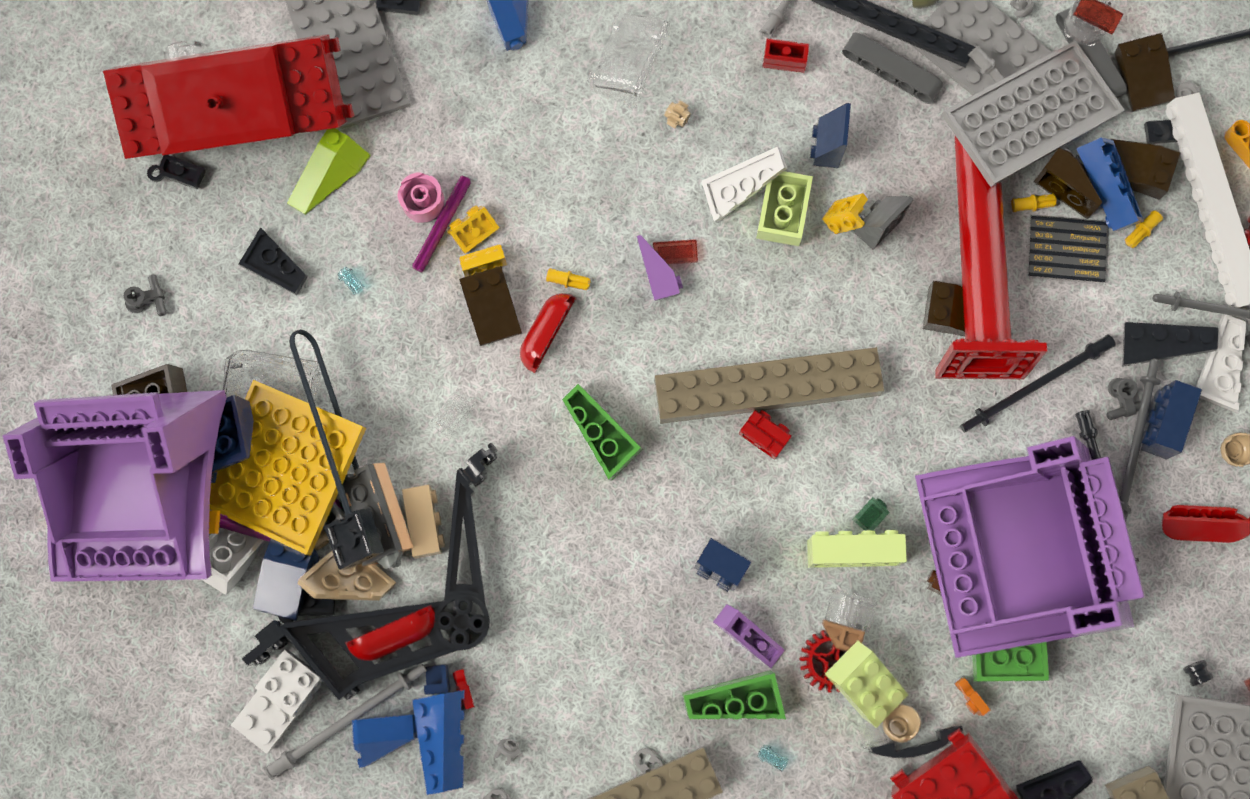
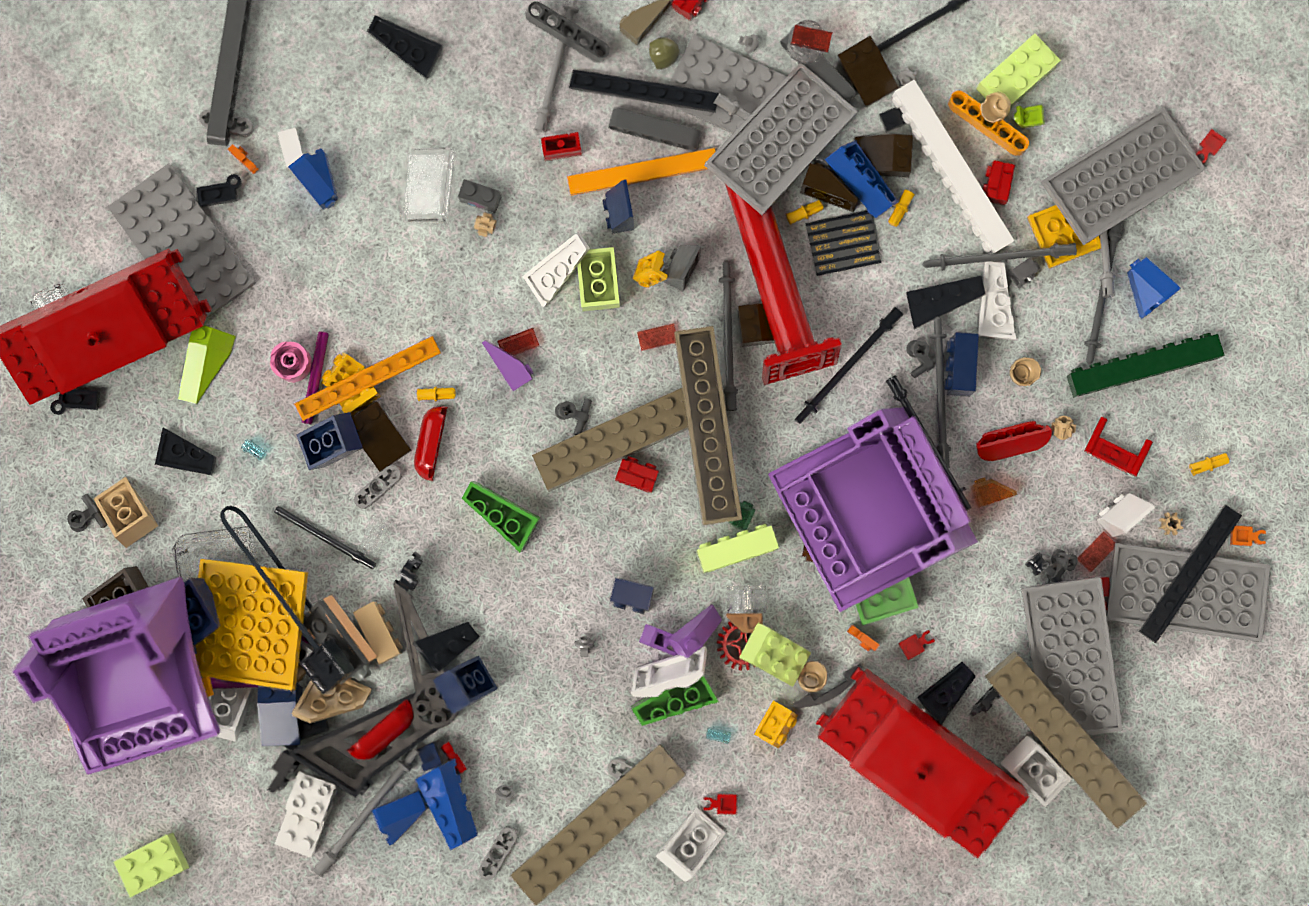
camera: 15 degrees left, 5 degrees up
(86, 705) = (151, 864): none -> yellowish green brick
(189, 307) = (125, 513): none -> tan slope
(426, 430) = (356, 556): none -> black bar
(436, 293) = (329, 441): none -> dark blue brick
(464, 357) = (370, 500): none -> light grey beam
(494, 558) = (446, 645): none -> black wing
(499, 239) = (367, 378): none -> light orange tile
(502, 609) = (465, 684): none -> dark blue brick
(650, 604) = (584, 644): none -> light grey plate
(680, 82) = (479, 196): none -> dark grey brick
(714, 345) = (582, 416): none -> dark grey piece
(739, 668) = (668, 673): none -> white slope
(781, 631) = (695, 632): none -> medium lavender slope
(831, 290) = (656, 337): none -> clear red tile
(843, 766) = (776, 724): none -> yellow bracket
(863, 400) = (707, 425): none -> dark tan brick
(864, 108) = (639, 172): none -> light orange tile
(896, 372) = (730, 390): none -> dark grey bar
(1027, 724) = (913, 646): none -> red plate
(1164, 573) = (990, 491): none -> clear orange slope
(1224, 681) = (1060, 565): none -> dark grey piece

